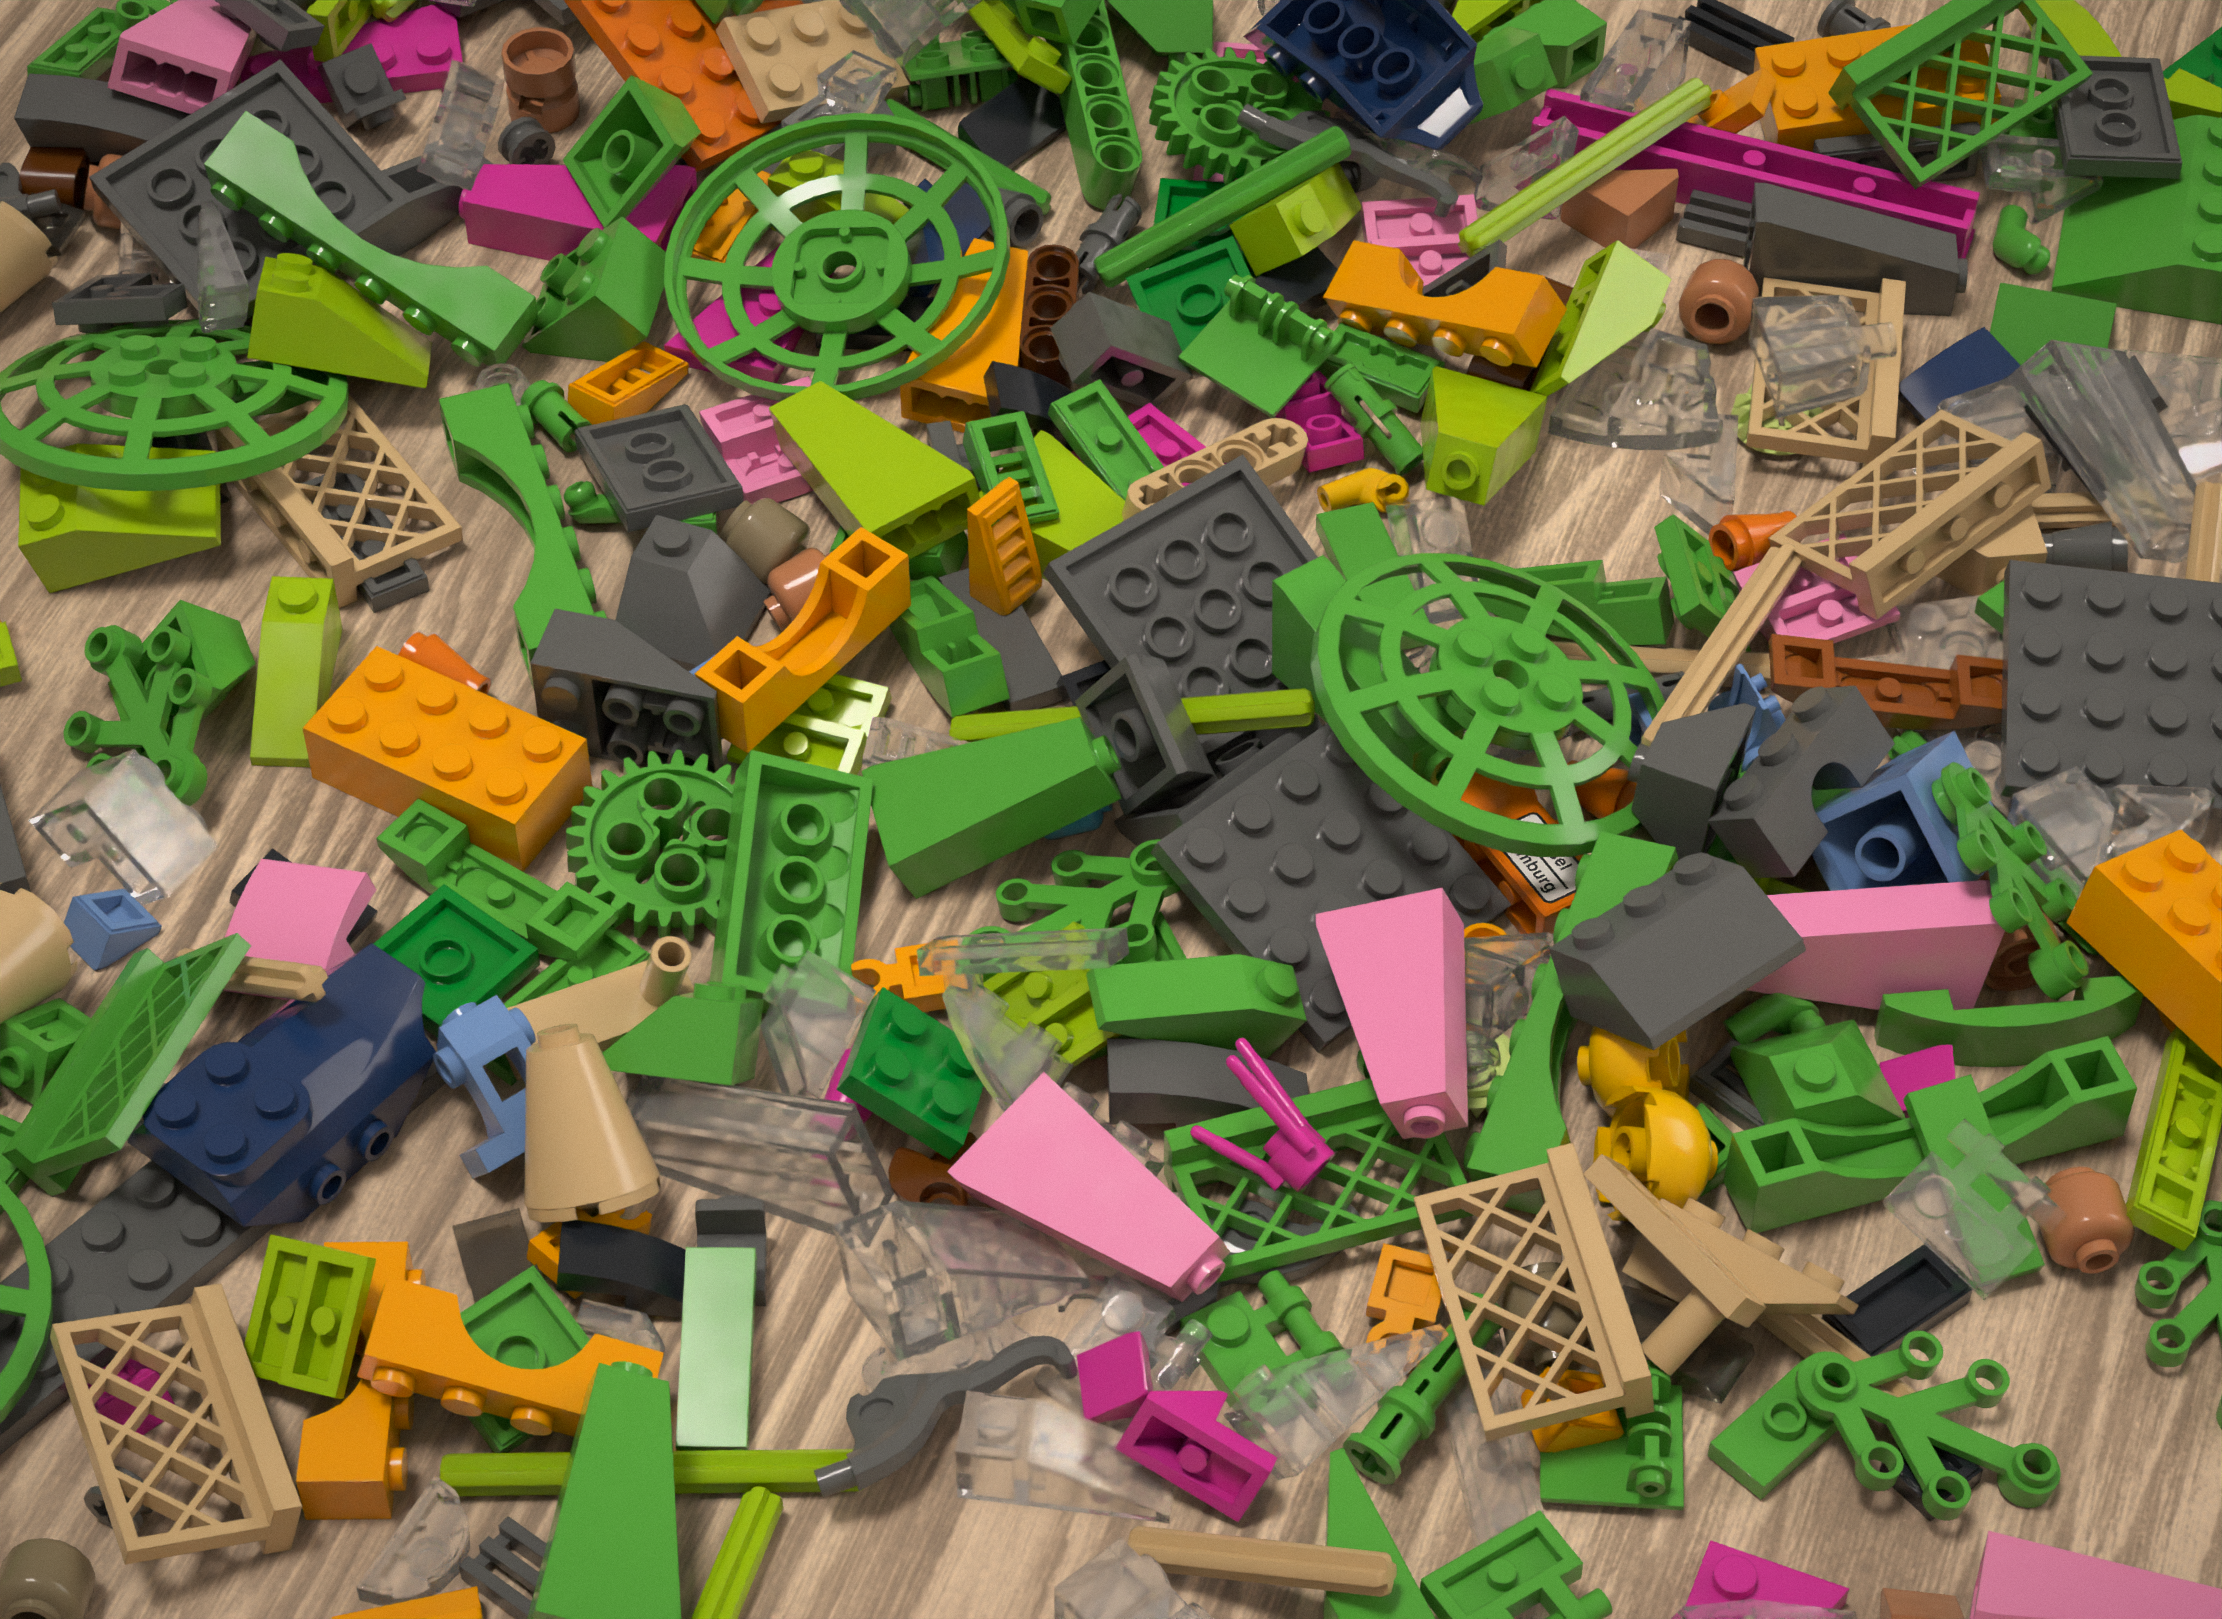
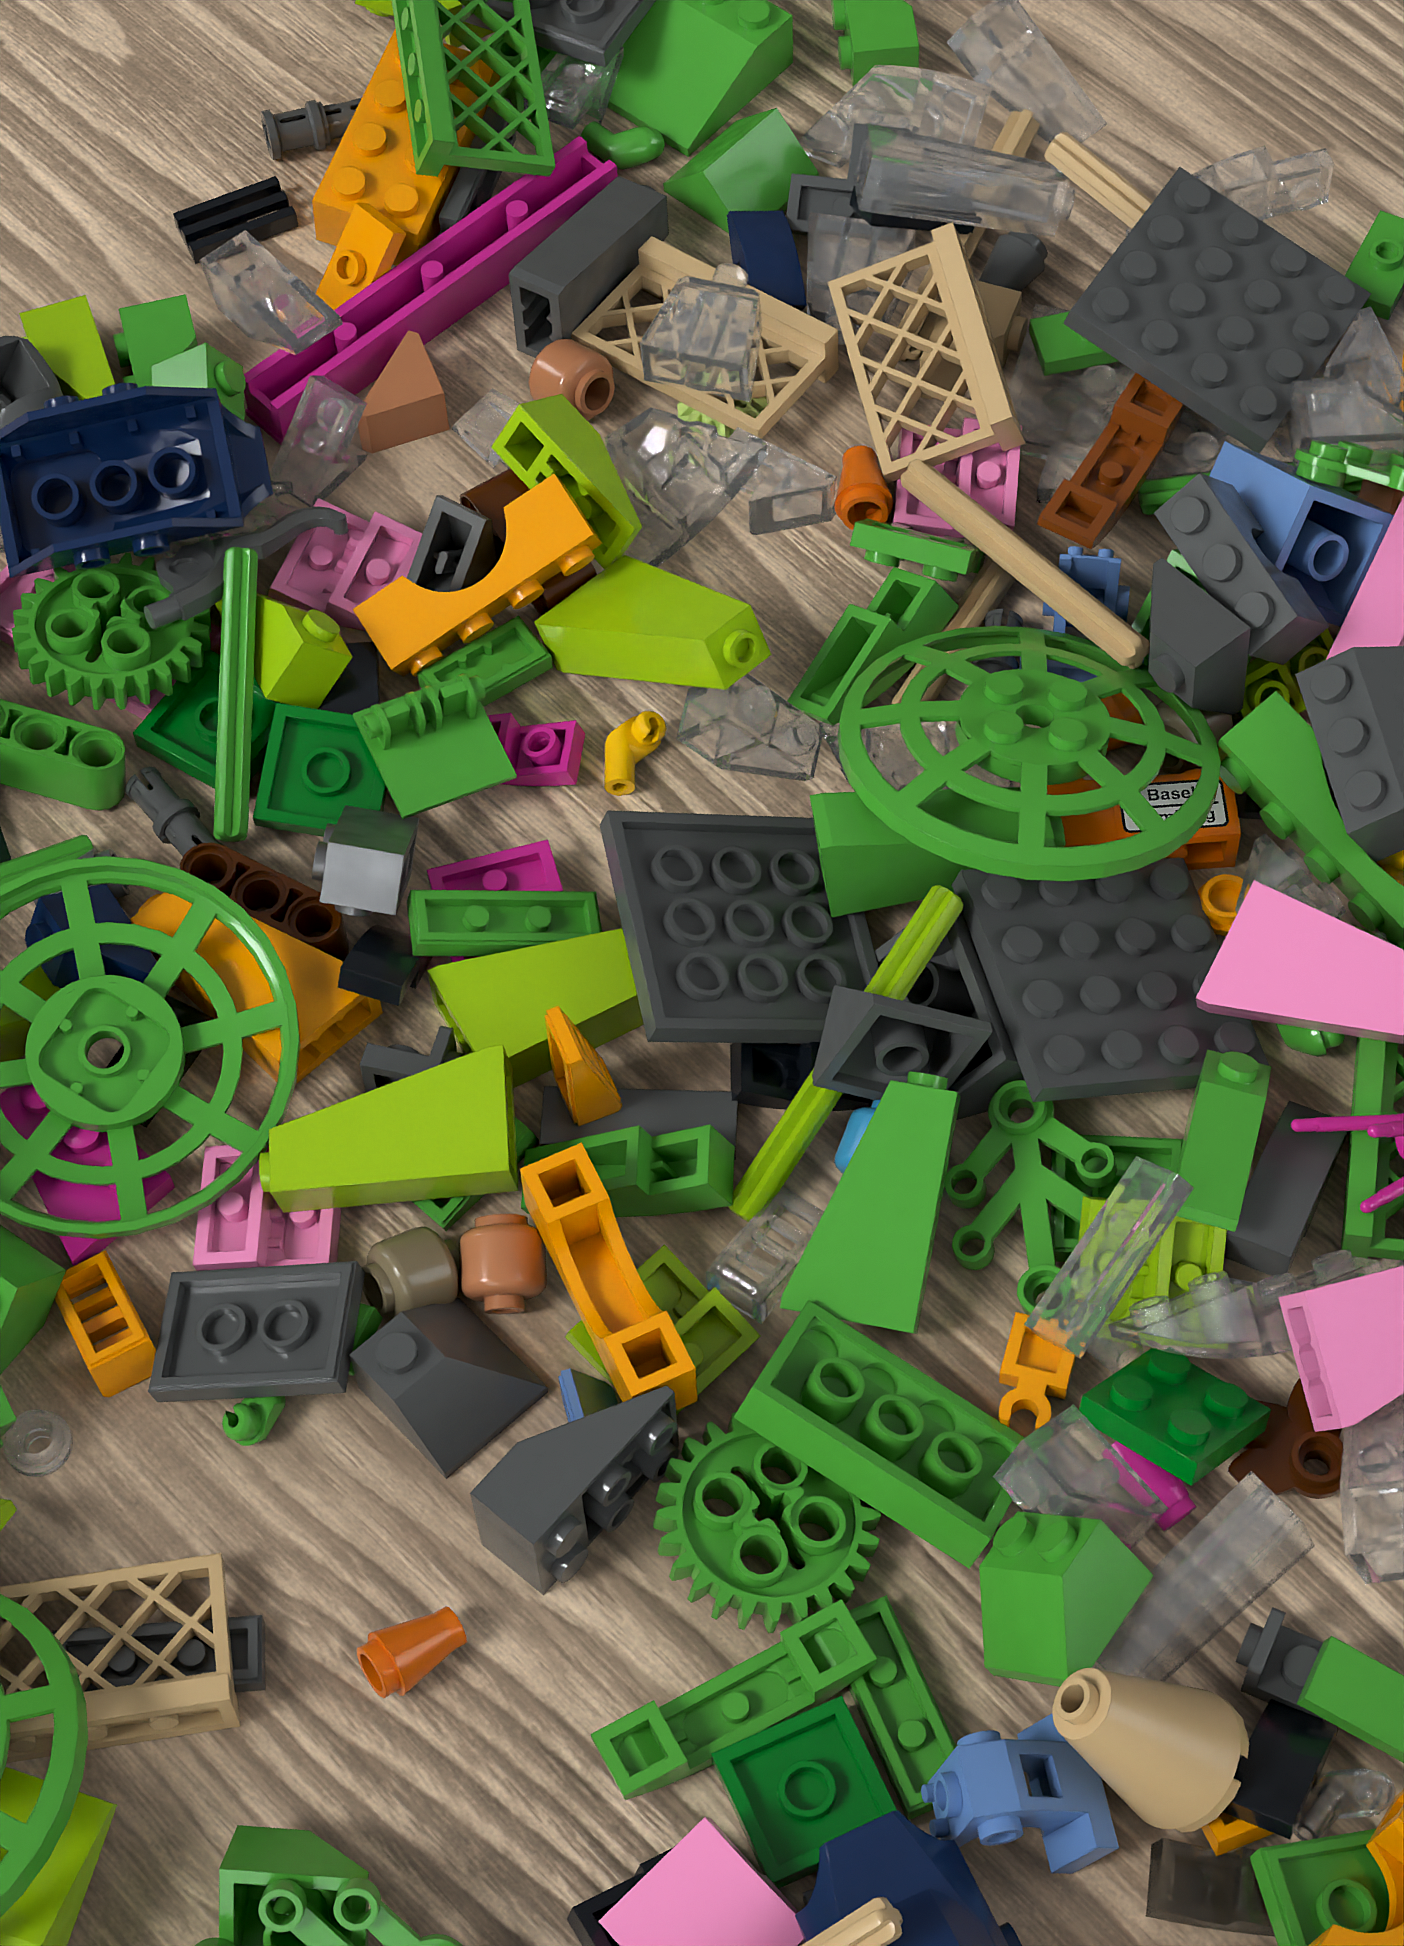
camera: 60 degrees left, 10 degrees up
(294, 667) = (332, 1796): lime slope -> none
(417, 734) = (537, 1682): light orange brick -> none
(494, 455) = (126, 1479): bright green arch -> none
(553, 412) = (106, 1402): bright green pin -> none
(615, 1001) = (947, 1654): tan piece -> none
(1003, 433) = (466, 993): bright green slope -> none
(1283, 458) = (572, 853): tan beam -> none
(1349, 390) = (525, 699): bright green pin -> none
(1357, 540) = (729, 786): bright green tile -> none
(1586, 167) = (376, 396): lime axle -> none
(1715, 223) = (470, 322): dark grey tile -> none

